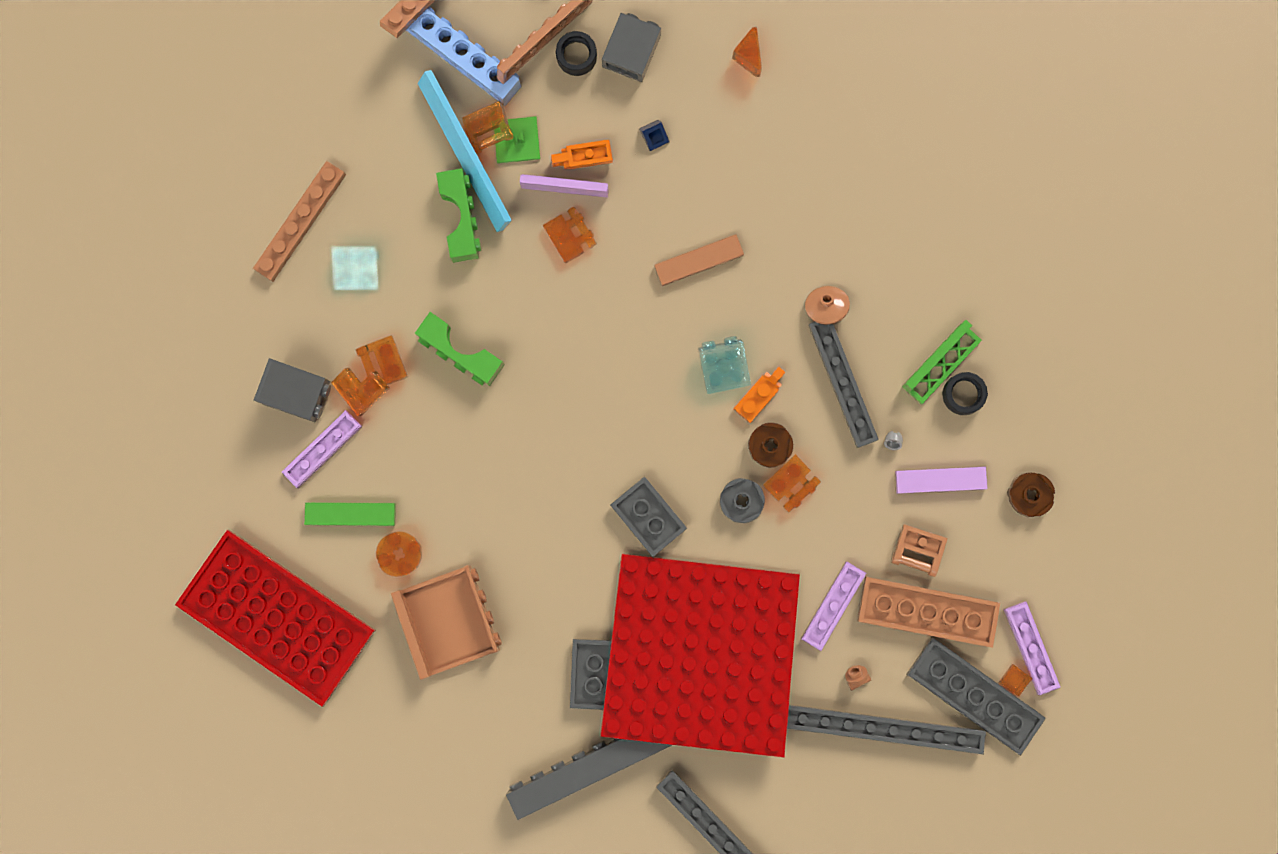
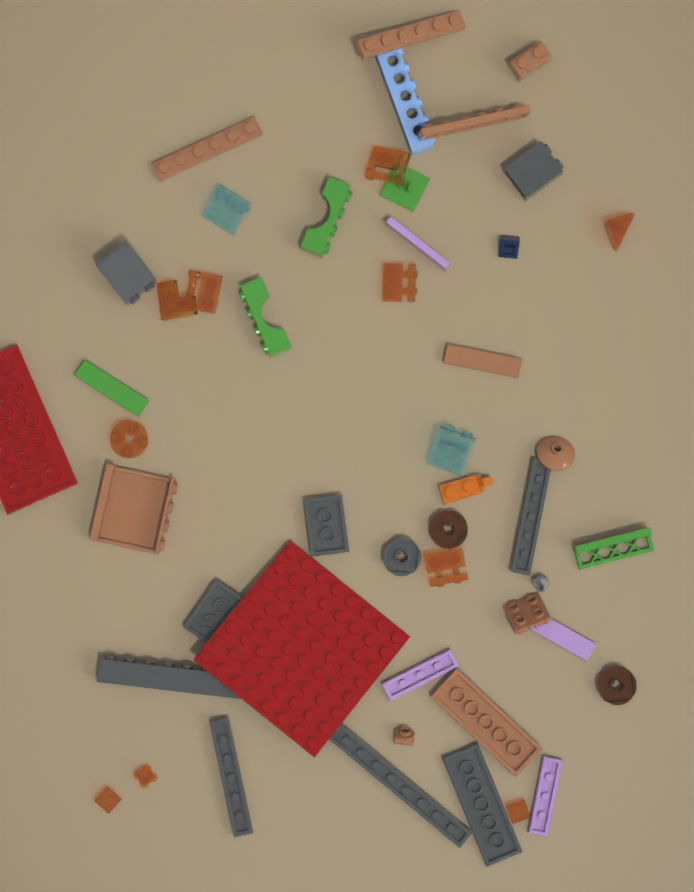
camera: 30 degrees right, 0 degrees up
(321, 449) = (120, 328): lavender tile -> none
(464, 151) = (360, 172): medium azure tile -> none
(579, 37) = (493, 136): black tyre -> none
(583, 155) = (446, 230): orange hinge -> none
(899, 478) = (527, 613): none -> nougat hinge
(922, 543) = (513, 670): nougat plate -> none
(975, 380) = (629, 576): black tyre -> none

